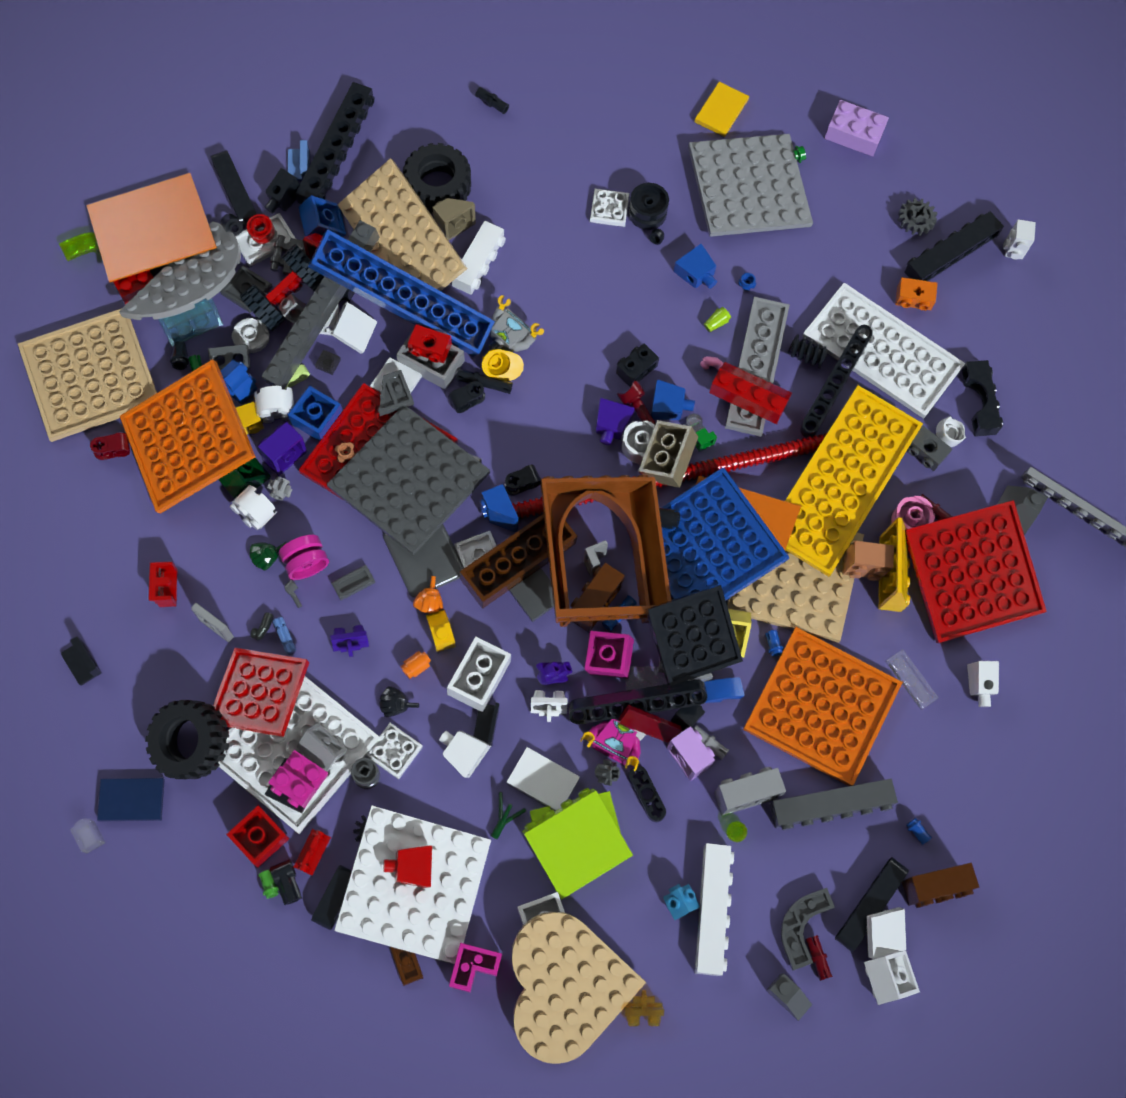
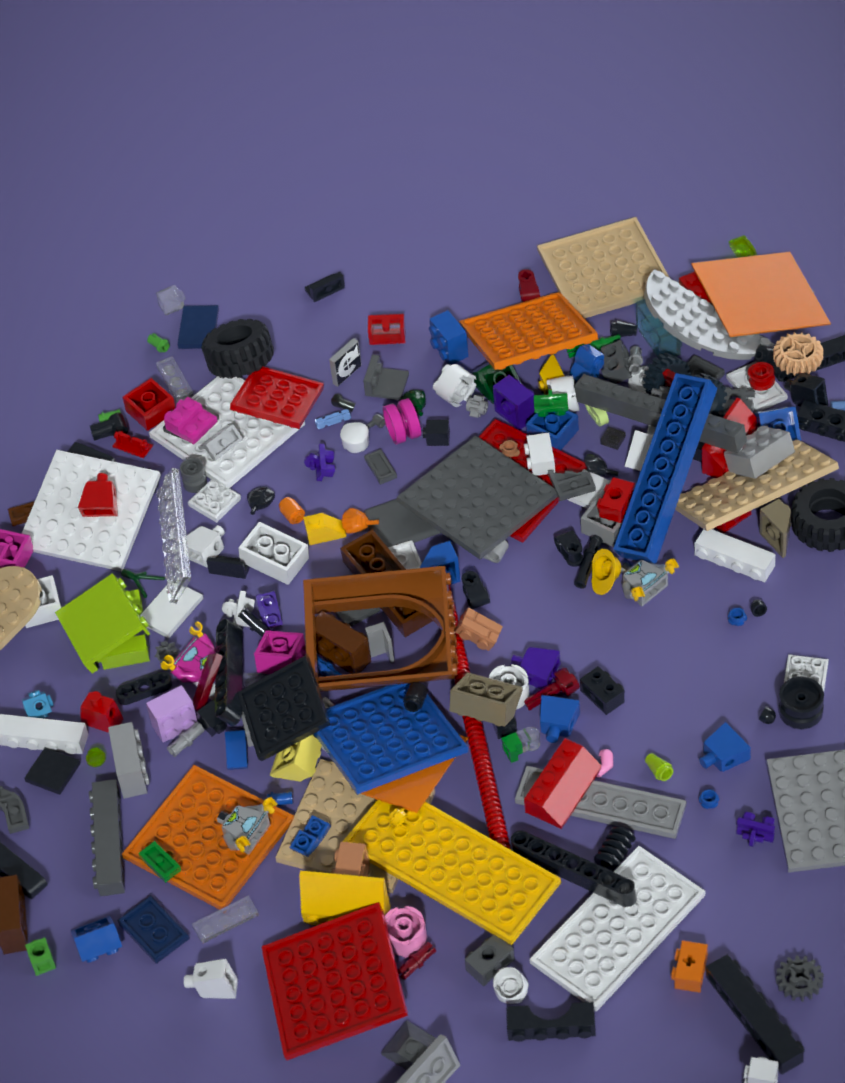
camera: 105 degrees right, 20 degrees down
(154, 842) = (161, 344): none -> bright green pin
(184, 517) = (448, 338): none -> blue brick
(214, 815) = (174, 379): none -> clear plate
(232, 200) = (798, 353): none -> light nougat gear
(236, 583) = (384, 382): none -> dark grey bracket
(239, 339) = (635, 360): none -> light grey pin
(301, 405) = (551, 403): none -> green hips
(313, 524) = (437, 432): none -> black brick
(315, 607) = (355, 437): none -> white hair
(357, 210) = (760, 452): none -> light grey brick
(359, 419) = (540, 454): none -> white brick
(365, 374) = (597, 466): none -> black piece
(458, 779) = (173, 535): none -> clear plate
(536, 241) = (758, 608): none -> black hinge
(548, 254) = (737, 613): none -> blue plate
(571, 683) = (255, 623): none -> black pin
(577, 465) = (478, 629): none -> nougat brick
(688, 833) = (100, 712): none -> red torso
(758, 873) = (52, 771): none -> black tile
(774, 251) = (754, 830): none -> dark purple hips
(809, 522) = (397, 817): none -> yellow plate
(821, 607) = (312, 835): none -> blue slope
(822, 665) = (246, 825): none -> light grey torso
(865, 743) = (160, 861): none -> green plate
(919, 831) = (69, 911): blue pin -> none
(926, 747) = (153, 929): none -> dark blue tile
(946, 799) = (96, 939): none -> blue slope
(979, 844) = (43, 962): none -> bright green brick

